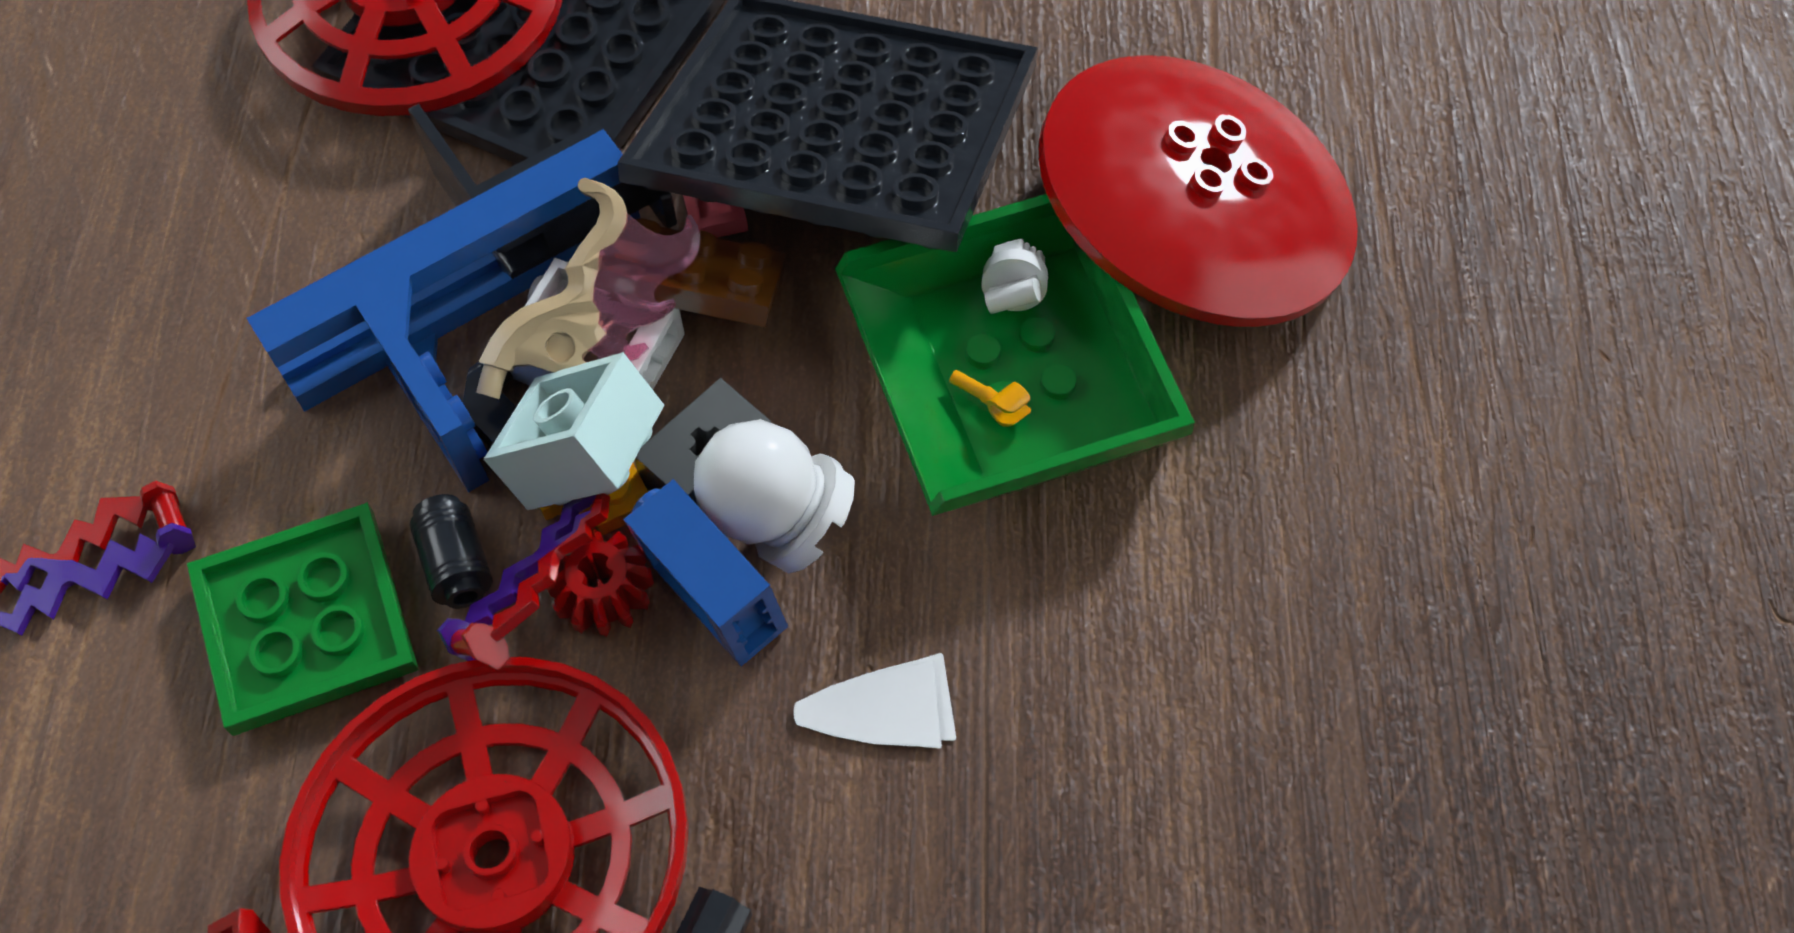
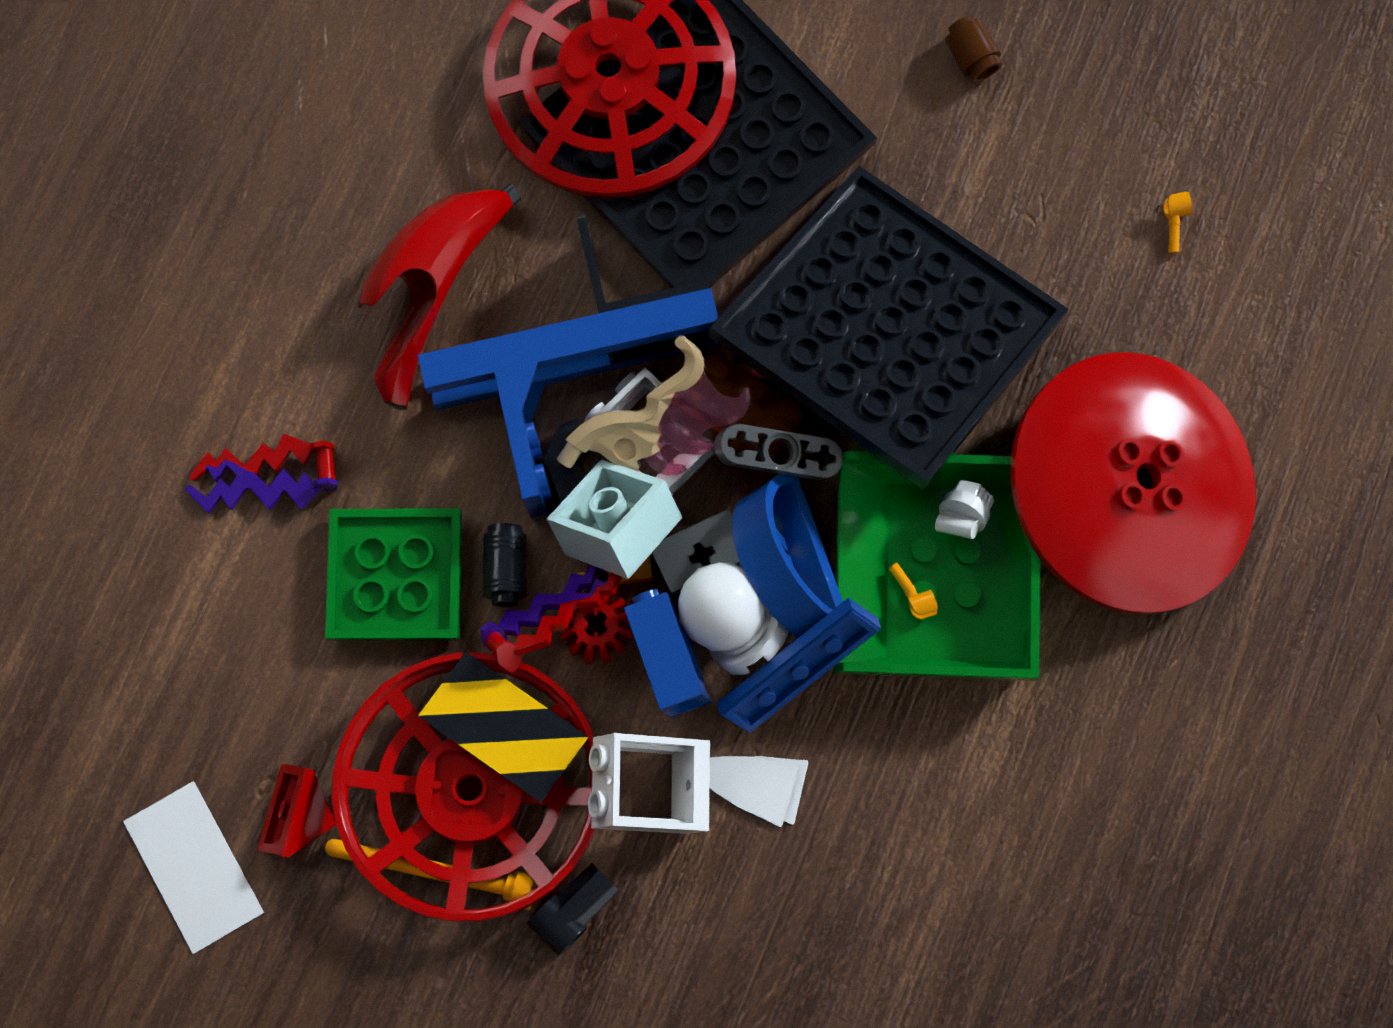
camera: 25 degrees right, 15 degrees up
(234, 236) = (428, 258): none -> red piece
(511, 746) = (503, 726): none -> sticker
(738, 298) = (810, 444): none -> dark grey beam
(786, 706) = (689, 783): none -> white window
(825, 406) = (784, 554): none -> blue window
(883, 520) = (799, 665): none -> blue tile

